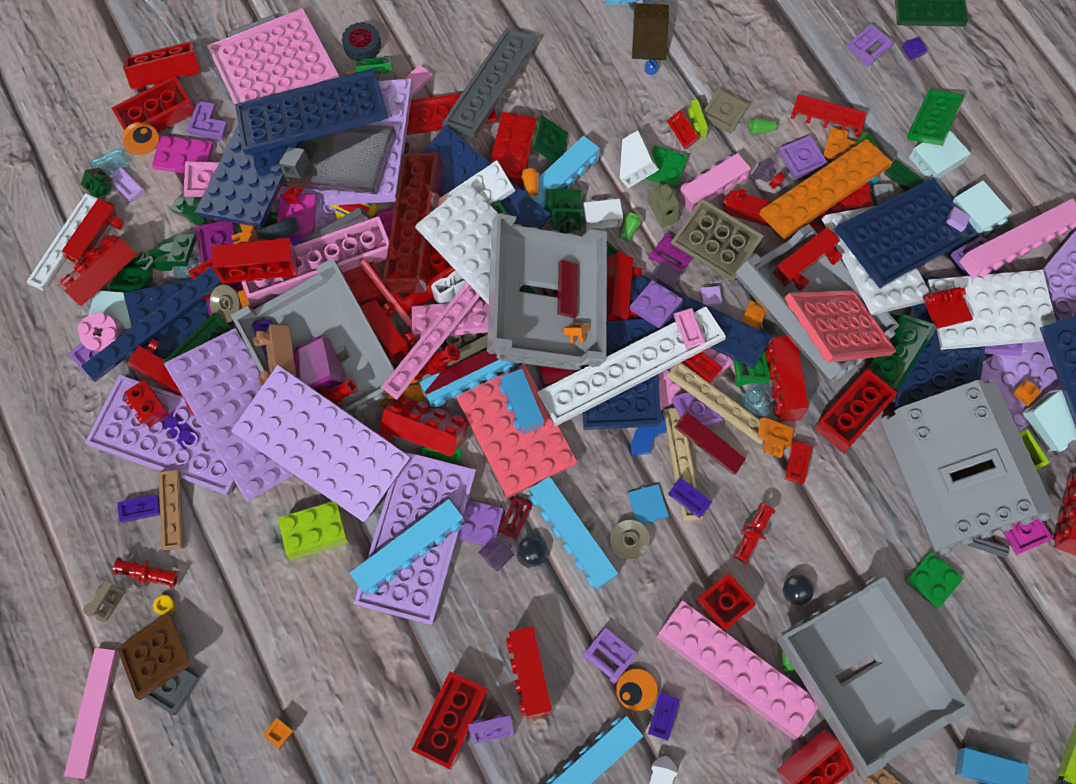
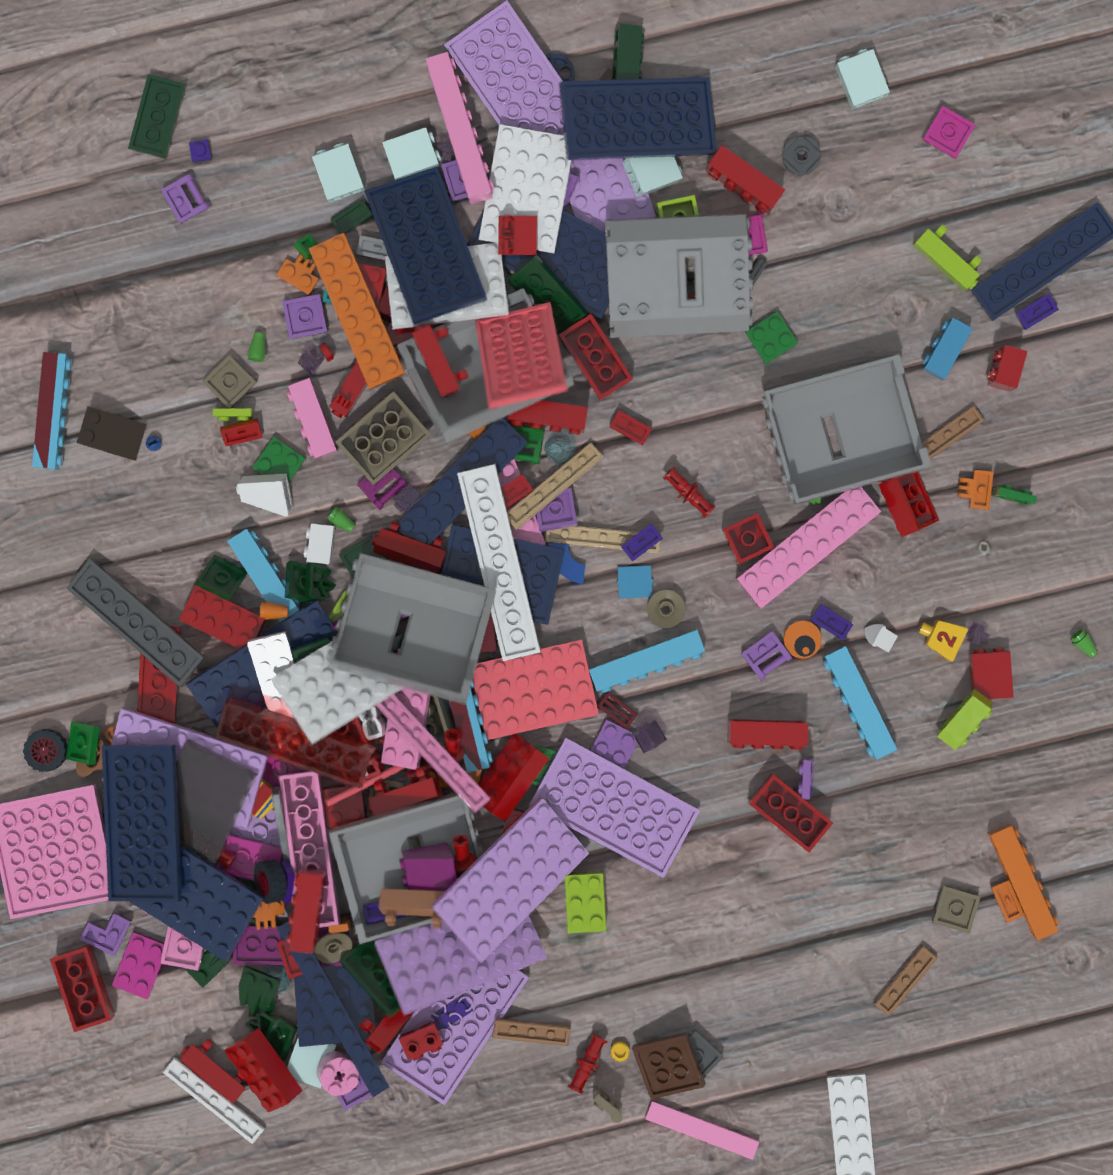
camera: 75 degrees left, 20 degrees up
(96, 182) = (156, 1058): dark green brick -> none
(110, 161) = (131, 1043): clear light blue tile -> none
(126, 185) = (161, 1029): lavender tile -> none
(138, 508) = (522, 1062): dark purple plate -> none
(140, 138) = (115, 1006): orange tile -> none
(161, 65) = (29, 971): red brick -> none
(278, 733) = (763, 966): orange tile -> none
(294, 162) = (200, 850): dark grey brick -> none
(407, 547) = (626, 818): medium azure brick -> none
(420, 77) = (108, 702): bright pink tile -> none
(521, 402) = (512, 680): dark azure brick -> none
(531, 552) = (654, 702): black hair -> none
(567, 289) = (406, 605): dark red tile -> none
(577, 329) = (453, 608): orange tile -> none
(656, 304) = (438, 519): medium lavender plate -> none
(662, 202) = (327, 479): olive torso -> none
(689, 328) = (477, 497): bright pink tile -> none
(710, 443) = (593, 508): dark red tile -> none
(711, 296) = (437, 459): lavender tile -> none
(775, 436) = (601, 443): orange hinge -> none
(798, 589) = (749, 466): black hair -> none
(828, 113) = (259, 272): red hinge -> none
(935, 117) = (295, 163): green tile -> none
(958, 219) = (419, 184): lavender tile -> none
(1027, 392) = (617, 185): orange tile -> none

